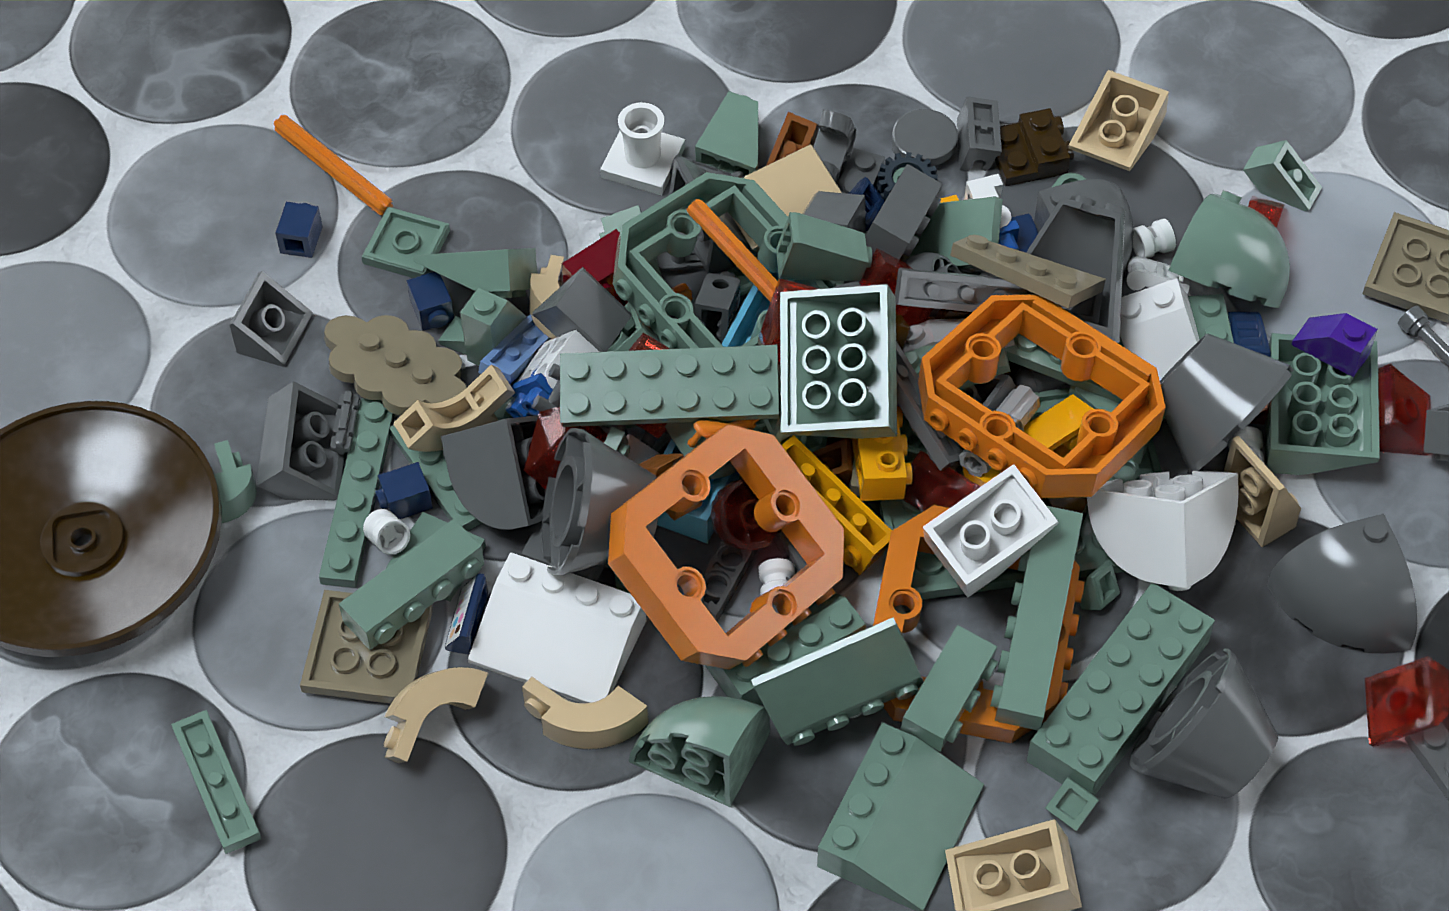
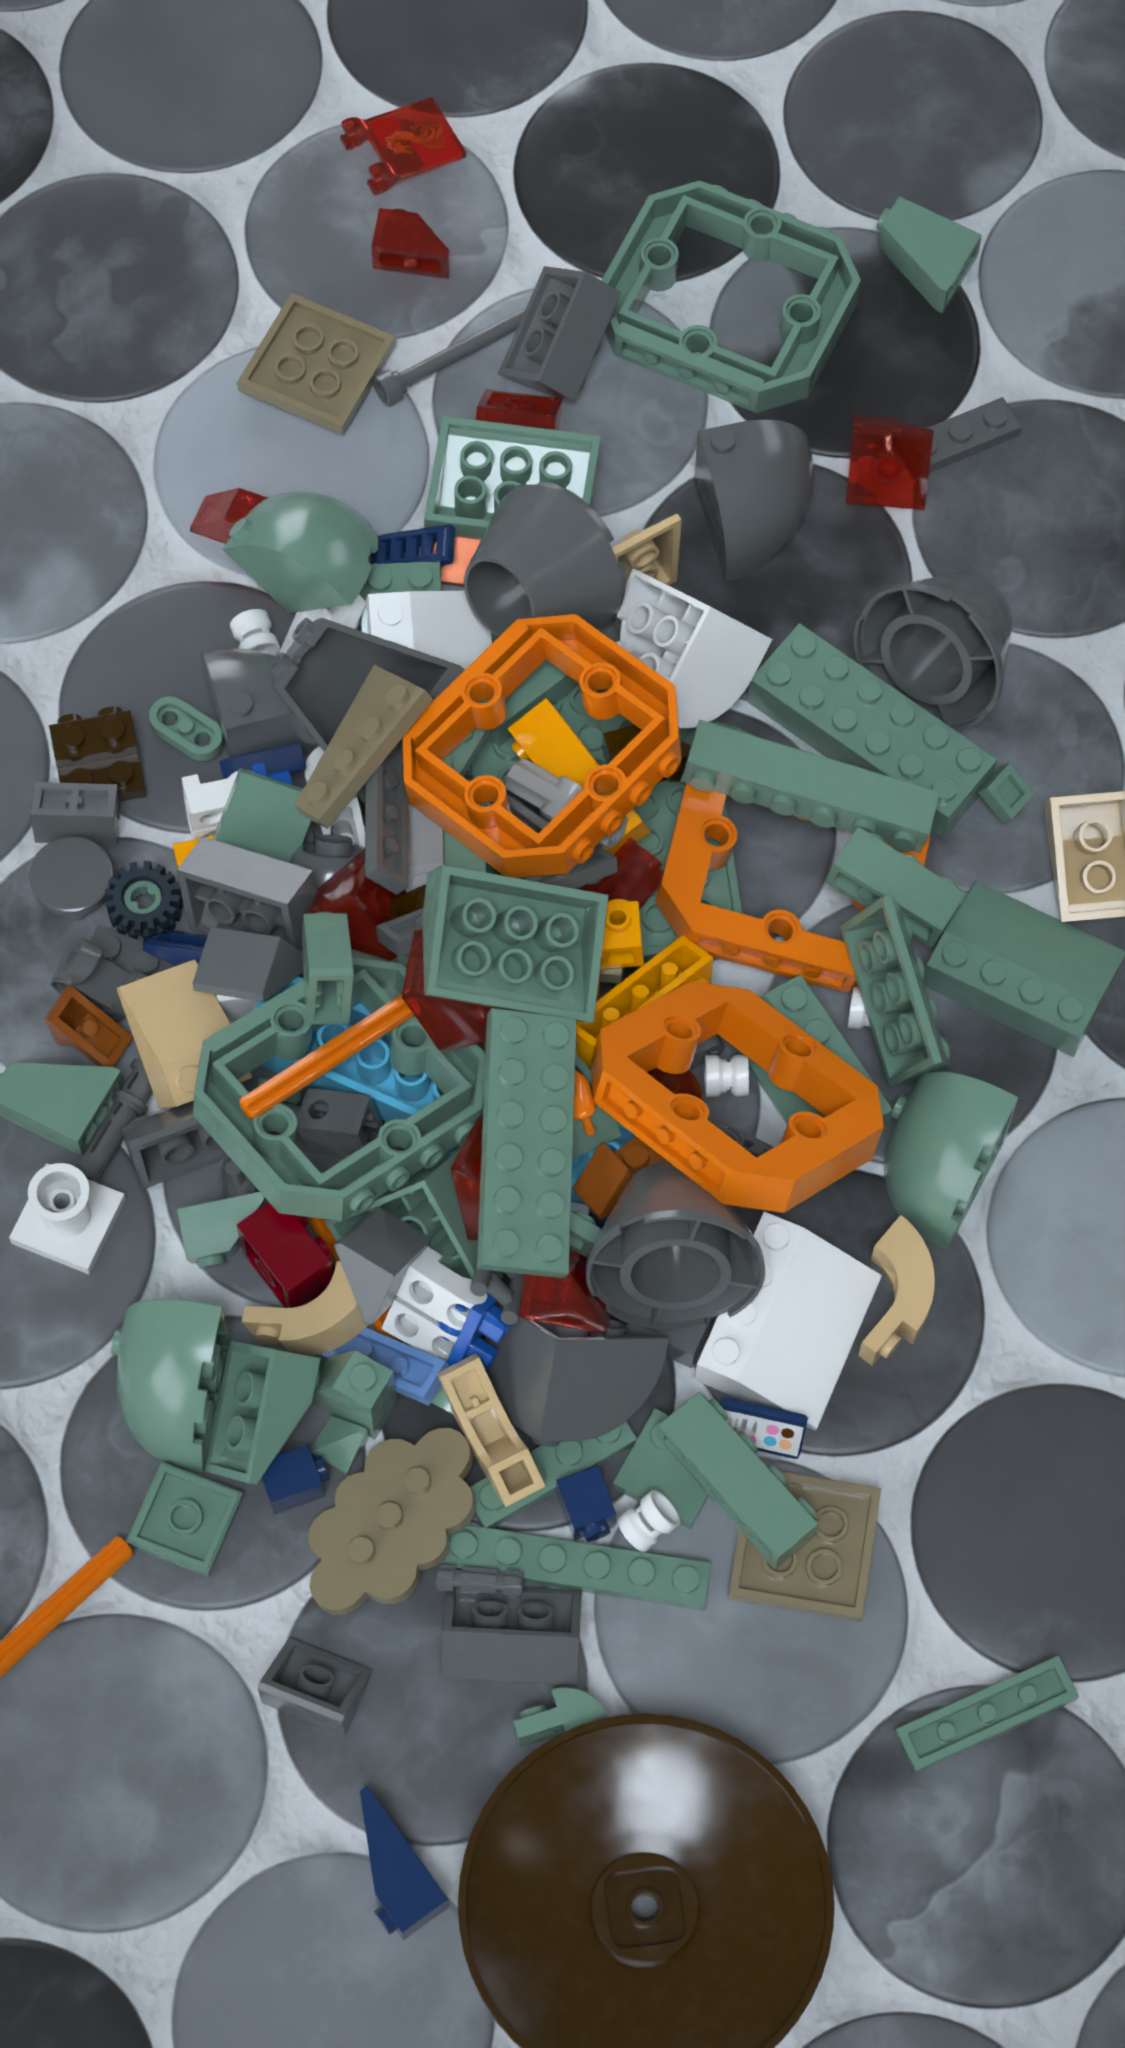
camera: 90 degrees left, 10 degrees up
(132, 376) = (400, 1880): none -> dark blue slope
(299, 229) = (158, 1655): dark blue brick -> none
(412, 705) = (890, 1467): tan arch -> none
(506, 213) = (171, 1376): none -> sand green brick
(989, 530) = (722, 815): white slope -> none
(1120, 120) = (83, 650): tan slope -> none
(1282, 175) = (170, 491): sand green slope -> none
(1337, 341) = (452, 450): dark purple slope -> none

